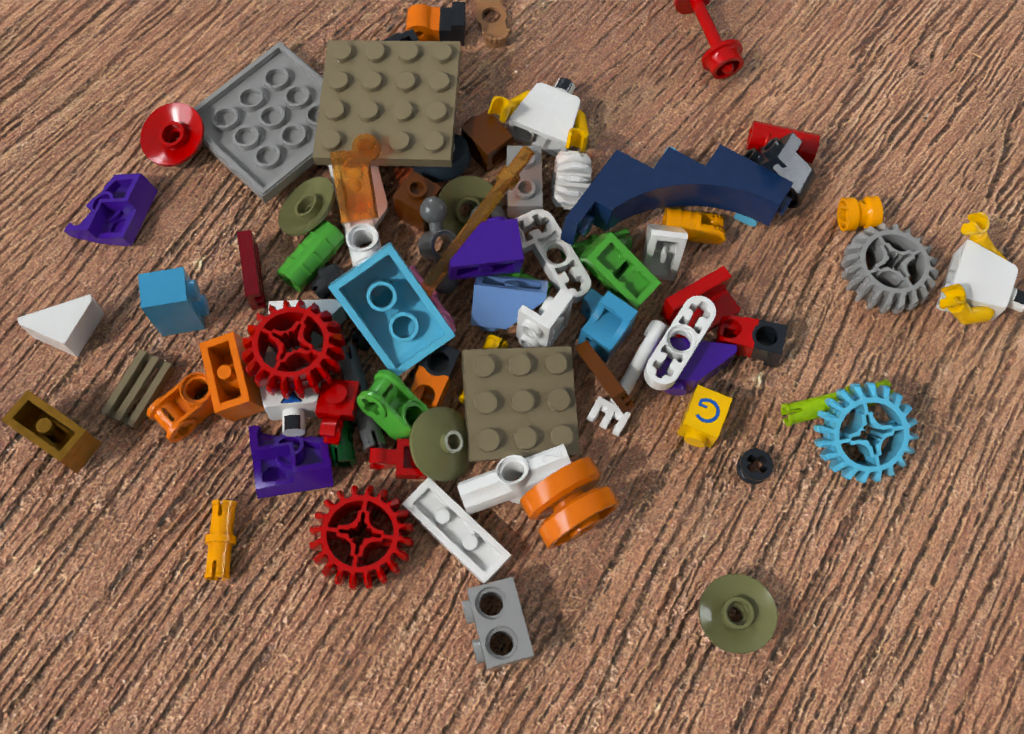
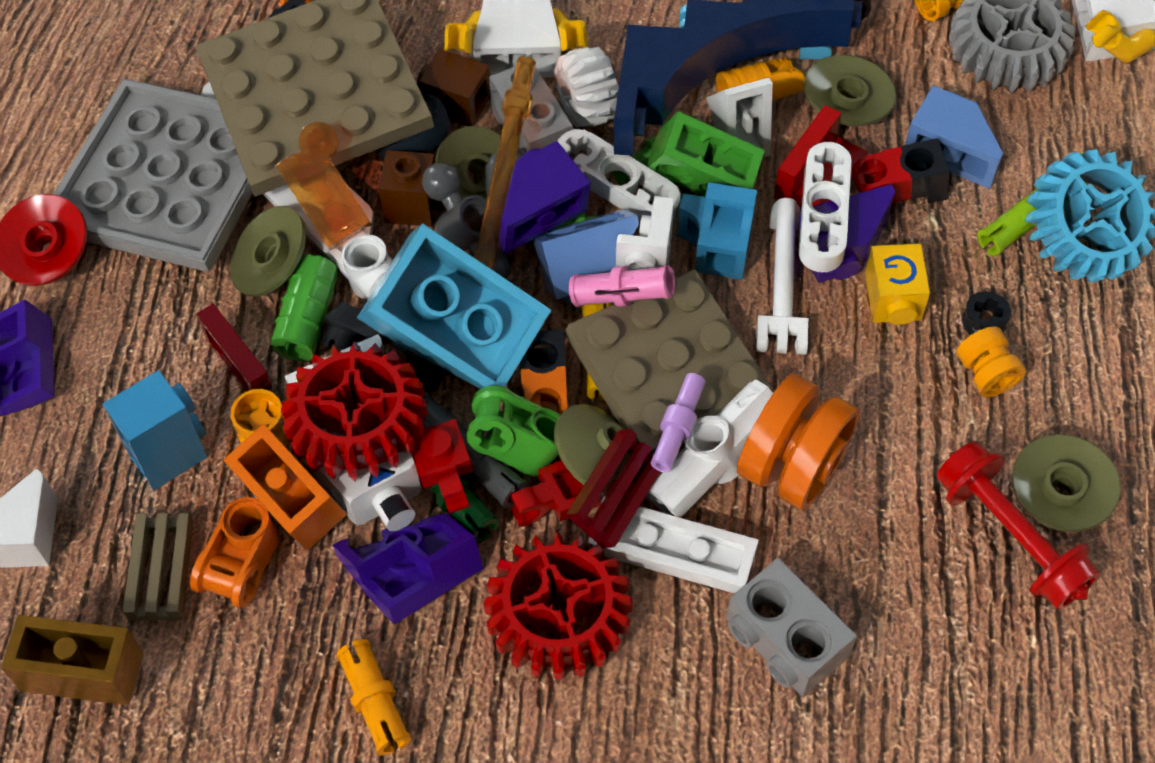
camera: 20 degrees left, 10 degrees down
(237, 316) = (253, 410): none -> light orange wheel
(439, 483) = (608, 536): none -> dark red tile
(497, 452) = (678, 422): none -> lavender bar
(511, 339) = (622, 286): none -> bright pink pin
(605, 376) = (756, 286): reddish brown tile -> none
(676, 575) = (1065, 576): none -> red piece
(736, 503) = (991, 362): none -> light orange wheel
(759, 252) = (852, 87): none -> olive dish
(807, 327) = (962, 135): none -> medium blue slope

